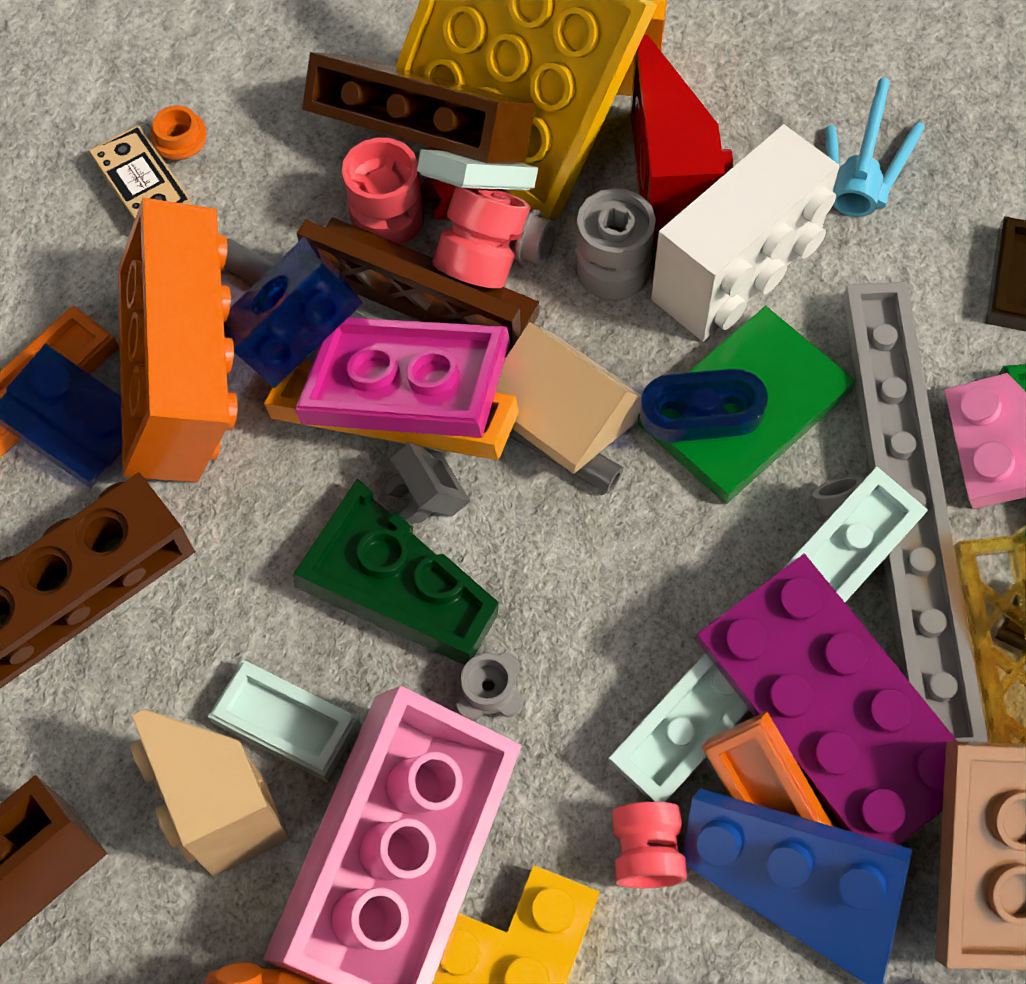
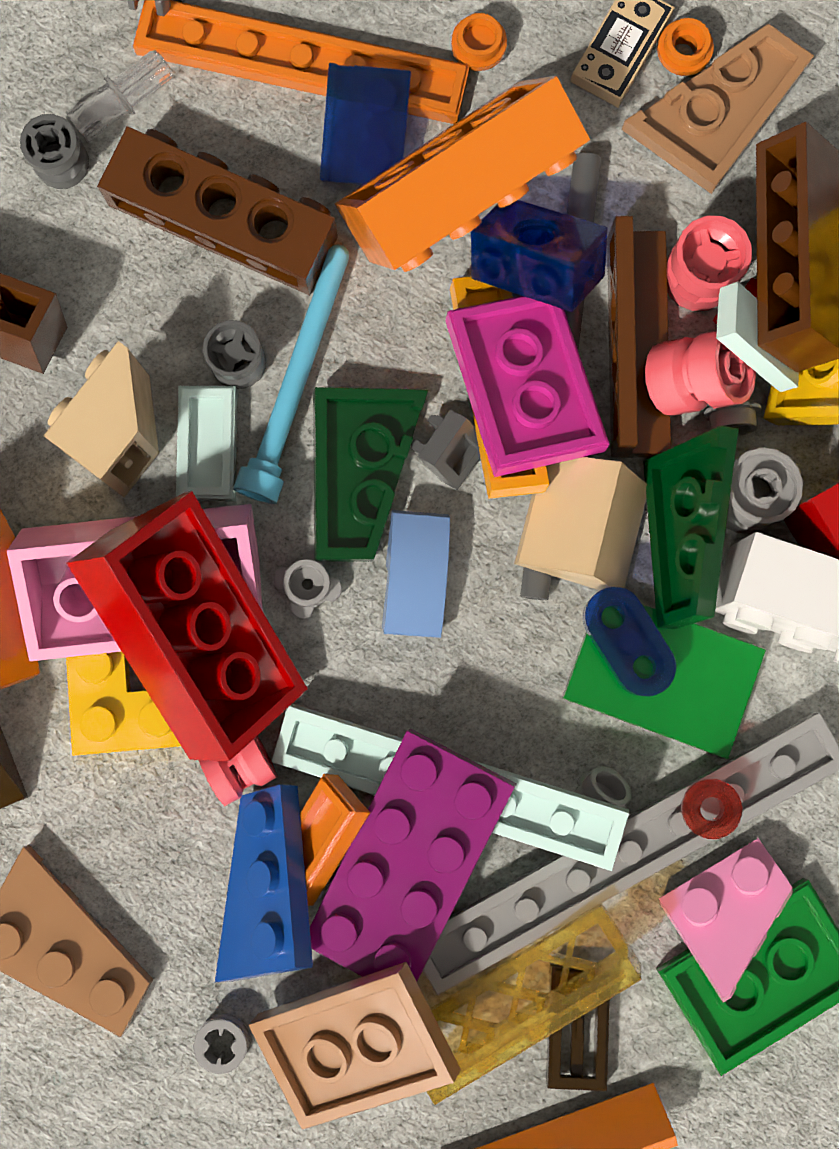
camera: 60 degrees right, 20 degrees up
(56, 287) = (479, 42): none -> orange plate
(203, 628) = (229, 345): none -> dark grey wheel
(252, 131) = (716, 114): none -> medium nougat wing
(352, 677) = (262, 475): none -> medium azure piece
(476, 806) = (189, 628): none -> red slope
(537, 568) = (416, 573): none -> medium blue slope
(616, 305) = (687, 524): none -> dark green wing
(905, 389) = (729, 814): none -> clear red plate

